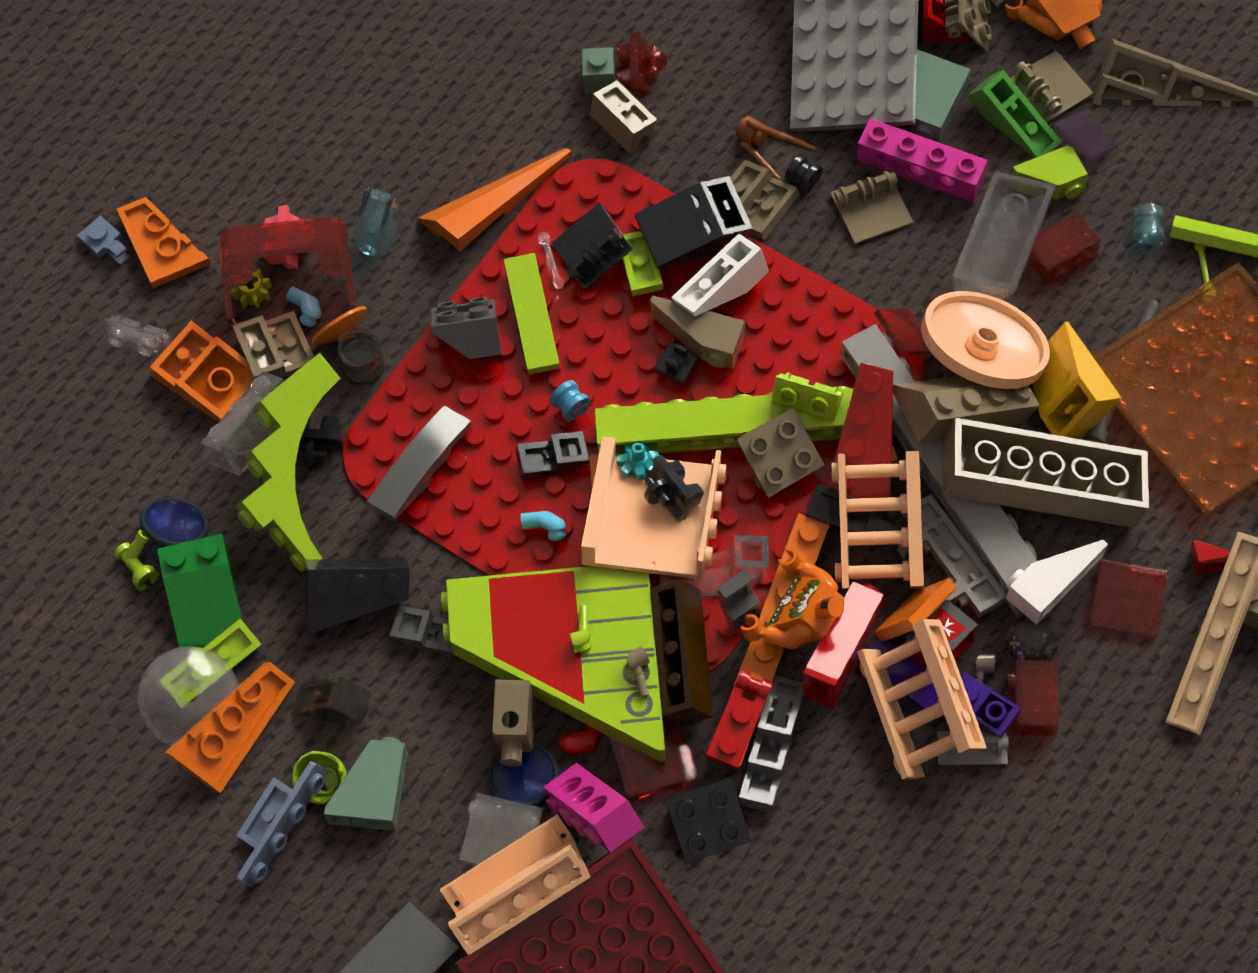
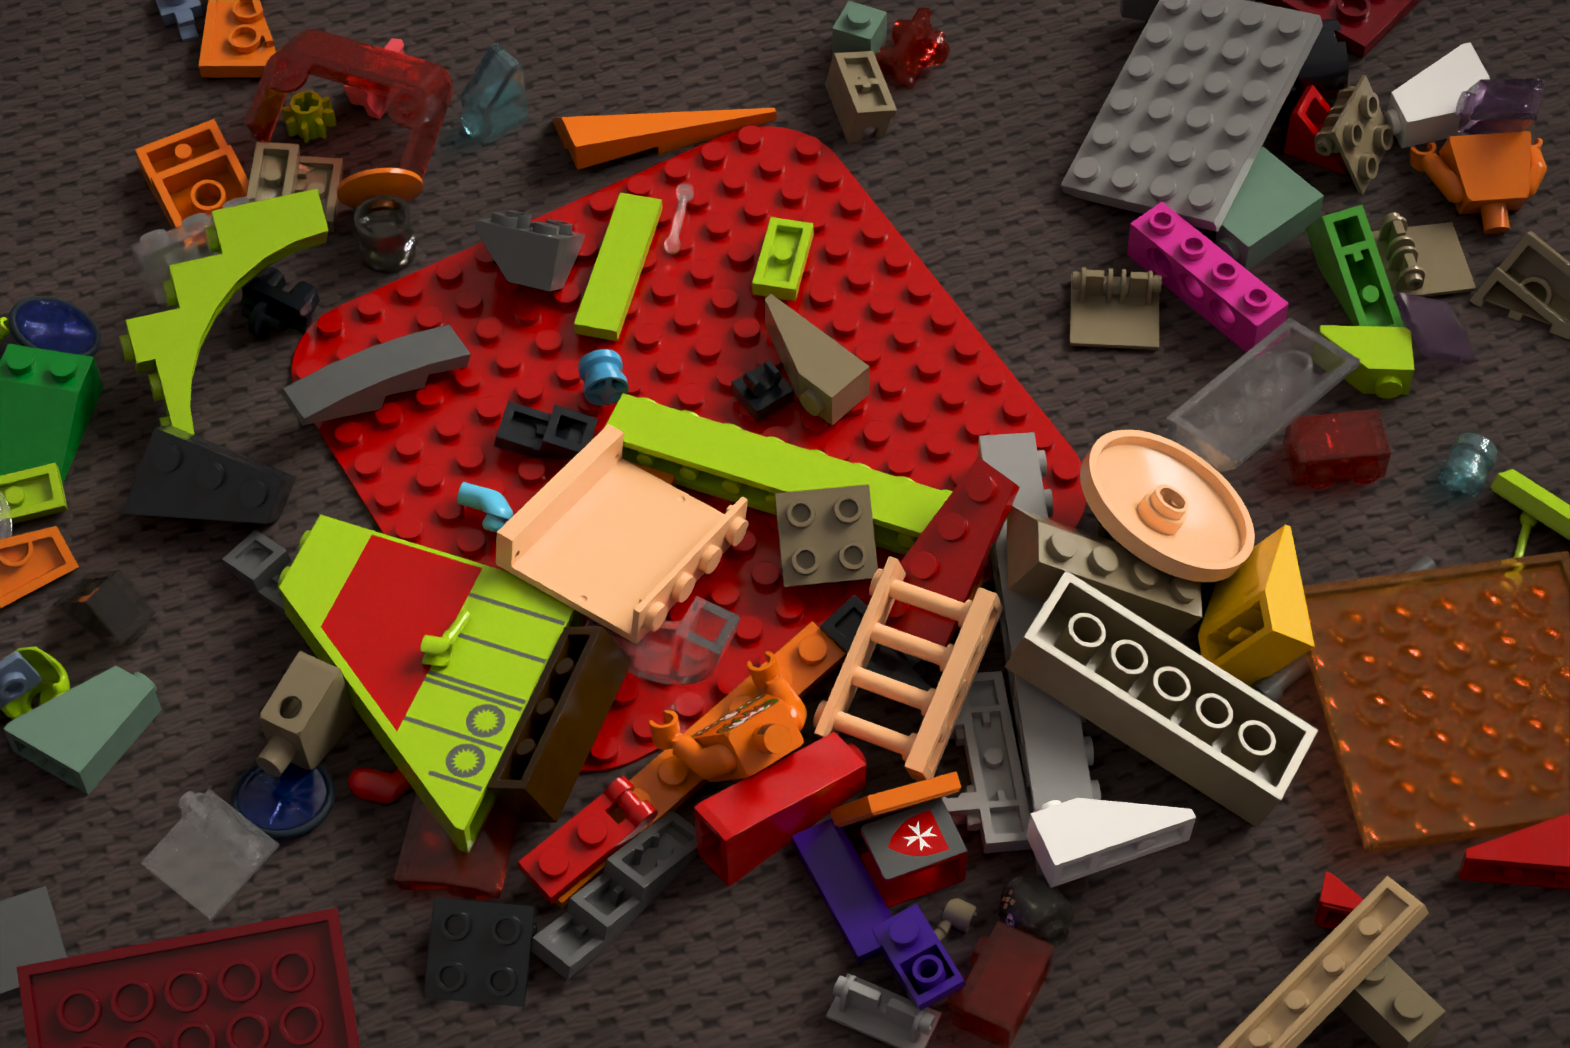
camera: 20 degrees right, 10 degrees down
(129, 335) = (144, 114): clear hinge -> none
(309, 306) = (363, 155): medium azure arm -> none
(514, 884) = (162, 908): light nougat panel -> none
(592, 246) = (733, 217): black hinge -> none
(592, 808) = (322, 860): dark pink brick -> none
(636, 460) = (641, 475): teal plant -> none
(636, 659) = (491, 702): dark tan hand -> none
(667, 487) = (656, 517): black hips -> none
(694, 223) = (873, 236): black slope -> none
(724, 277) = (876, 308): white slope -> none
(738, 600) = (668, 685): dark grey slope -> none
(750, 183) = (964, 234): dark tan slope -> none
(755, 133) = (1014, 174): dark orange plant -> none
(797, 393) = (892, 480): lime hinge -> none
(803, 174) = (1046, 239): black wheel -> none
(903, 330) = (1064, 457): clear red piece -> none
(952, 700) = (876, 916): light nougat fence -> none
(1128, 598) = (1201, 913): clear red slope -> none

